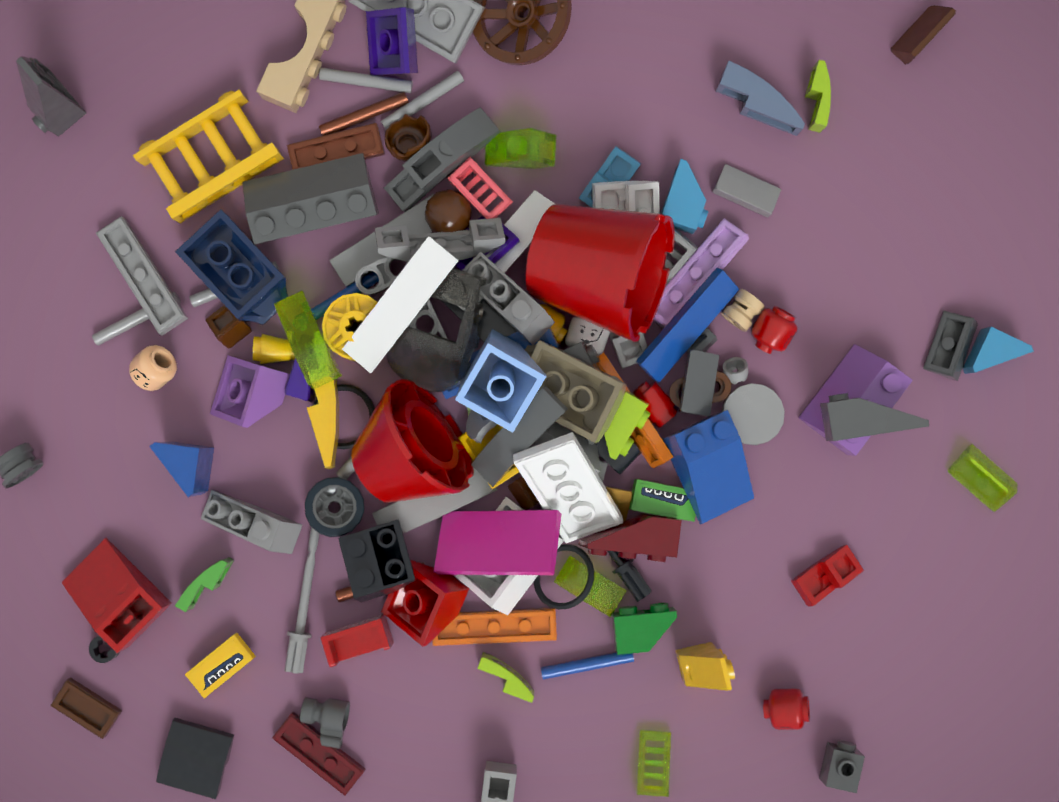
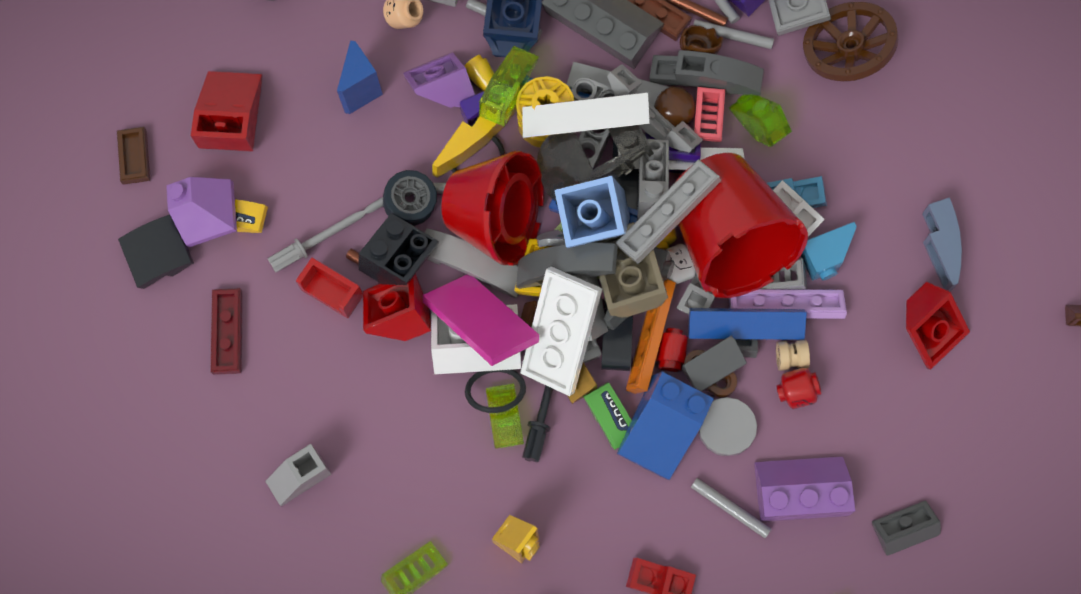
camera: 50 degrees right, 15 degrees down
(95, 653) = (183, 125): black bush -> none
(192, 692) = (202, 208): none -> medium lavender slope
(210, 578) = (294, 159): bright green slope -> none
(227, 327) = (471, 38): reddish brown slope -> none
(251, 523) = (352, 156): light grey slope -> none
(331, 716) = (261, 315): dark grey piece -> none
(496, 627) = (420, 378): orange tile -> none
(514, 682) = (390, 417): lime slope -> none
(554, 317) = (668, 211): none -> light grey tile
(585, 665) = (446, 462): blue bar -> none
(629, 415) = (639, 330): lime slope -> none
(641, 629) = (504, 476): green slope -> none
(642, 534) = (574, 420): dark red slope -> none
(741, 366) = (746, 387): light grey hinge -> none
(747, 191) = (875, 289): light grey slope -> none
(815, 172) = (934, 323): none -> red slope
(818, 469) = (731, 508): none -> light grey bar
(819, 90) = (987, 278): lime slope -> none
(858, 417) = (793, 489): dark grey slope -> none
(992, 349) = (934, 559): dark azure slope -> none

